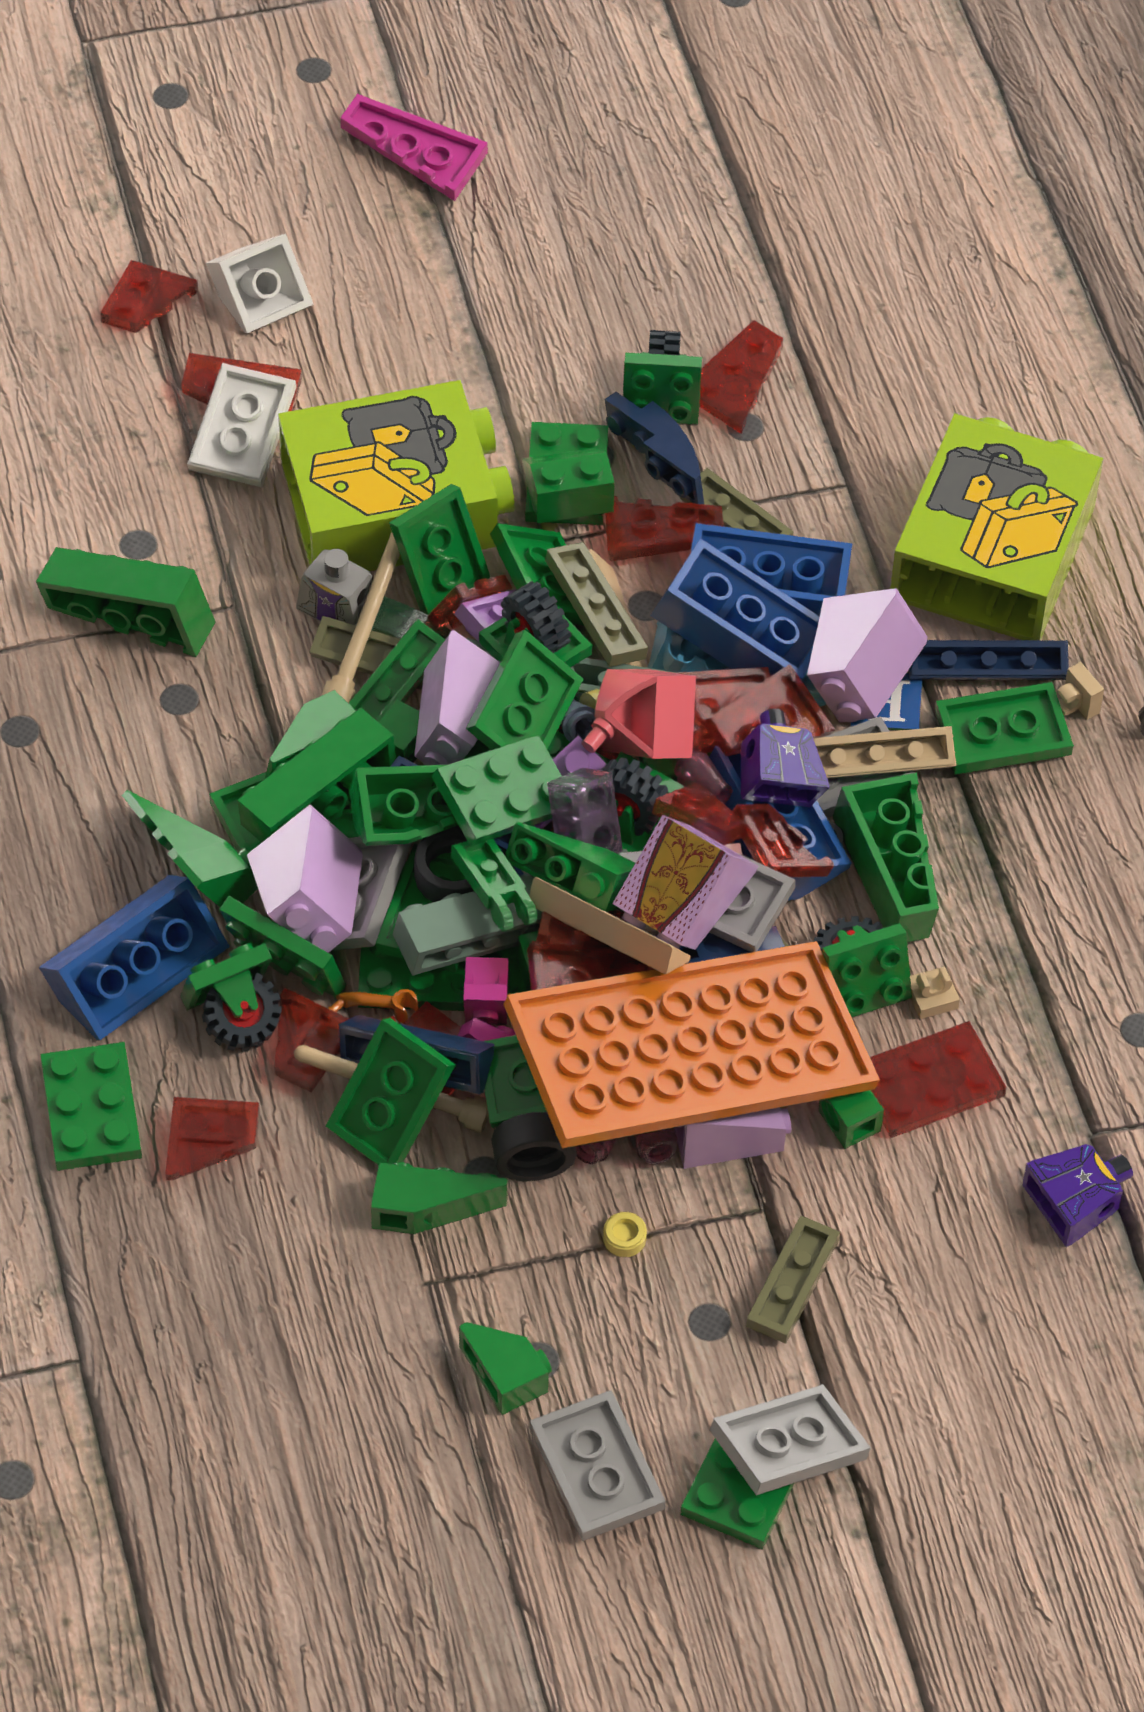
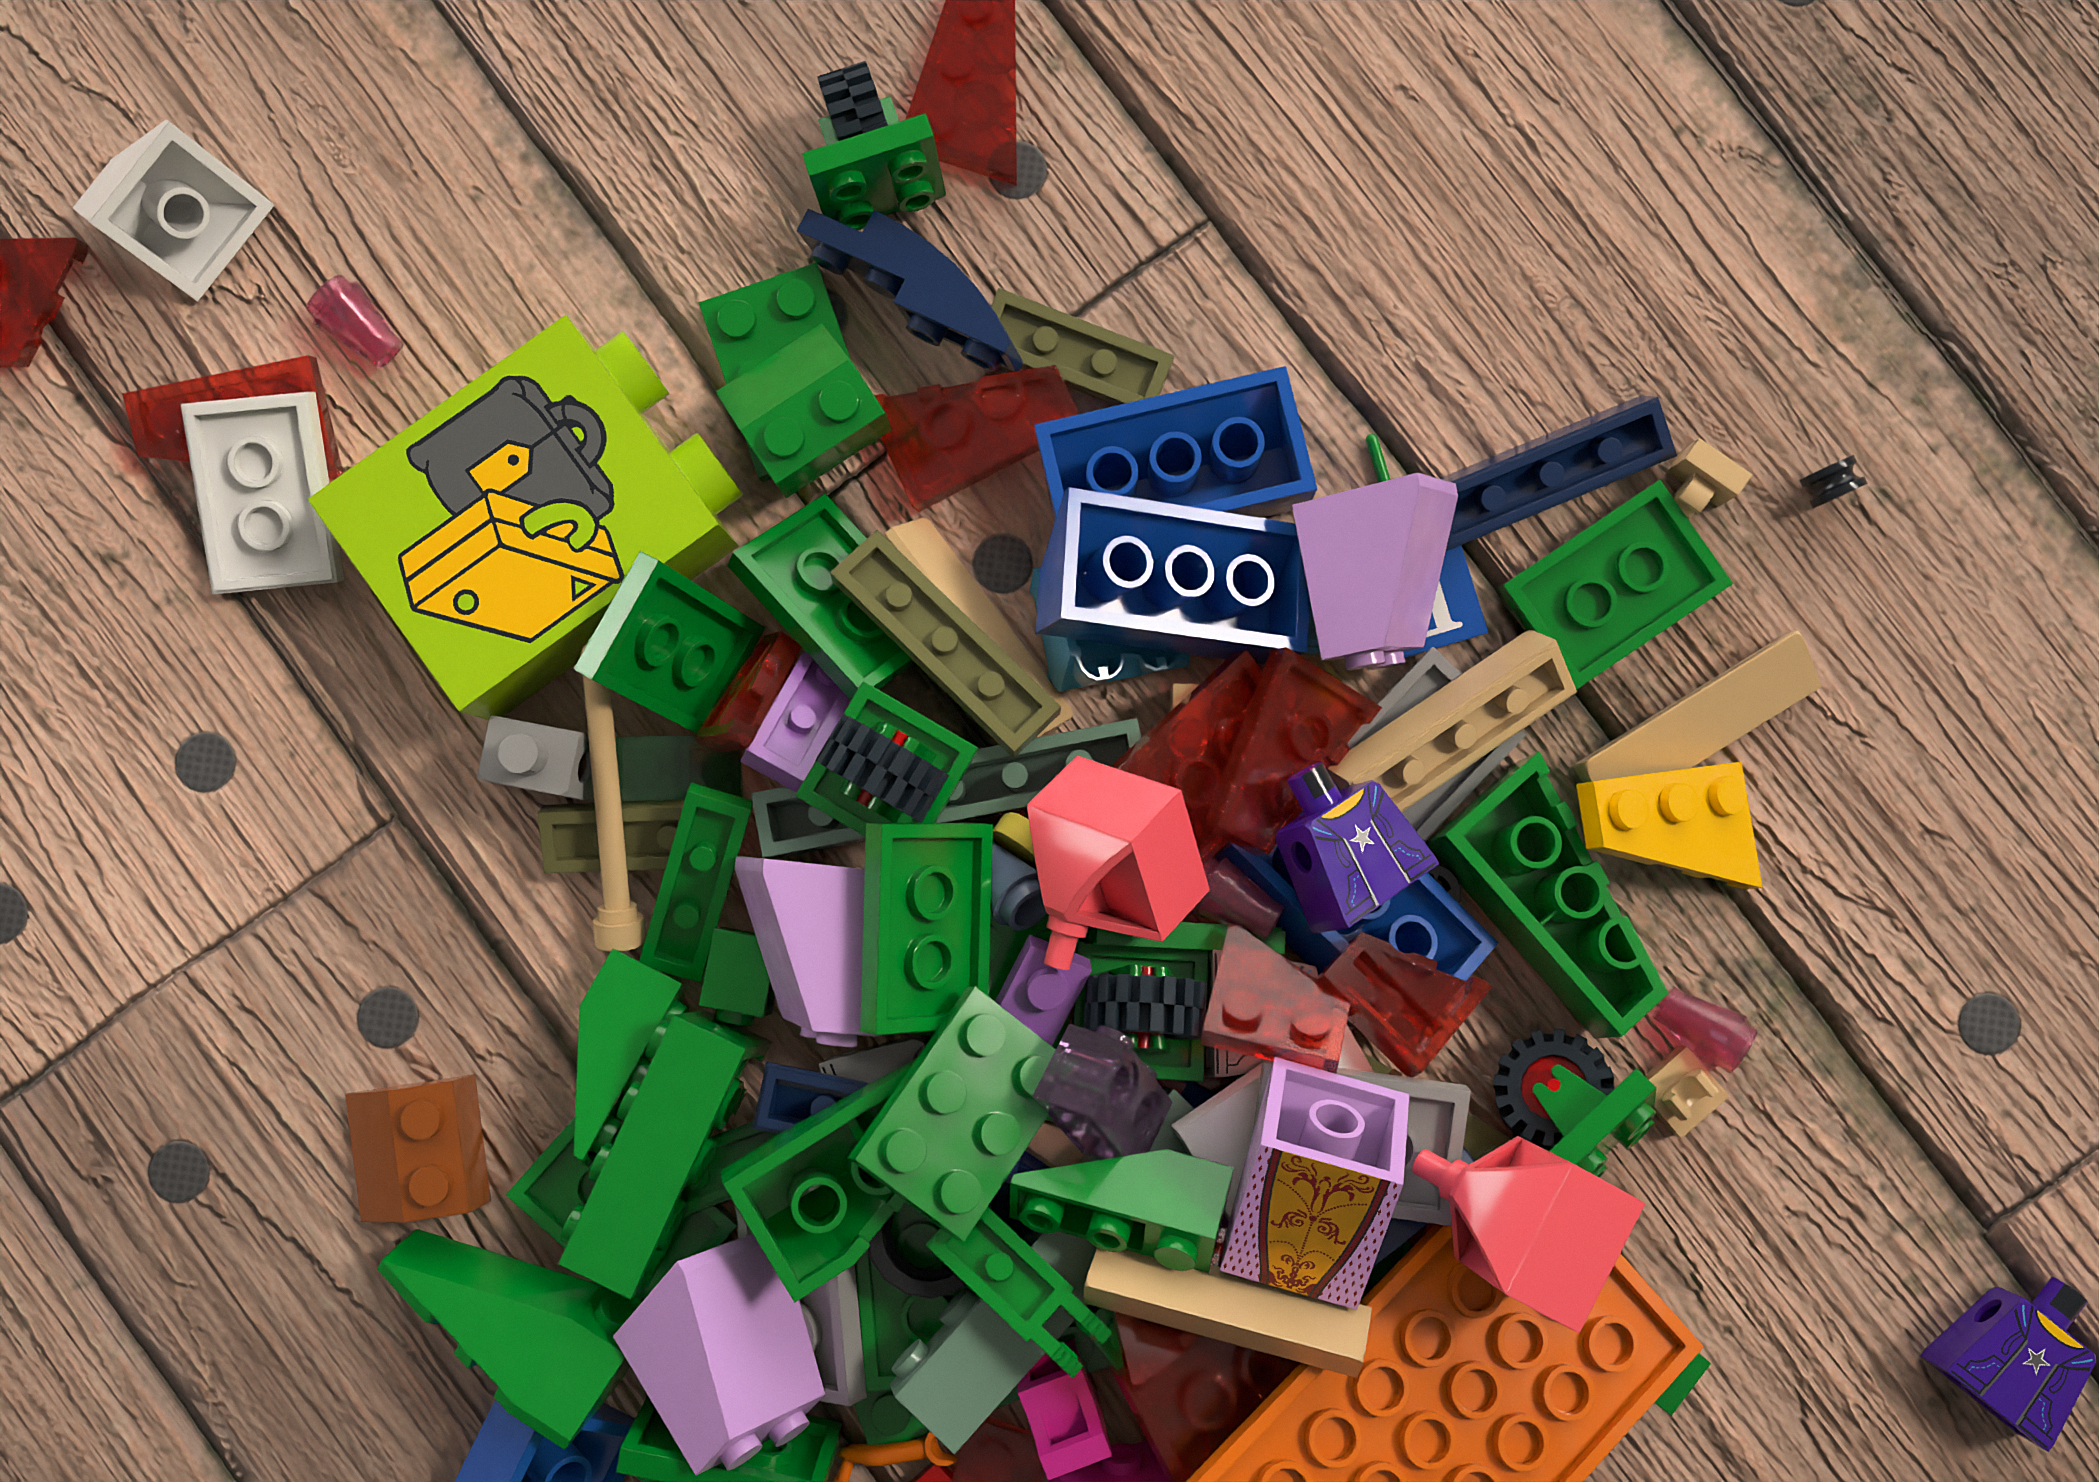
camera: 15 degrees left, 30 degrees up
(129, 596) = (227, 891): green wedge -> none
(169, 756) = (418, 1150): none -> dark orange slope
(331, 364) = (352, 319): none -> clear pink cone
(799, 936) = (1534, 1225): none -> coral piece
(934, 1079) = (1735, 1240): clear red plate -> none
(963, 963) = (1708, 1030): none -> clear pink cone
(991, 843) = (1676, 820): none -> yellow wing
(996, 527) = (1486, 226): lime brick -> none
(1024, 811) = (1710, 714): none -> tan slope

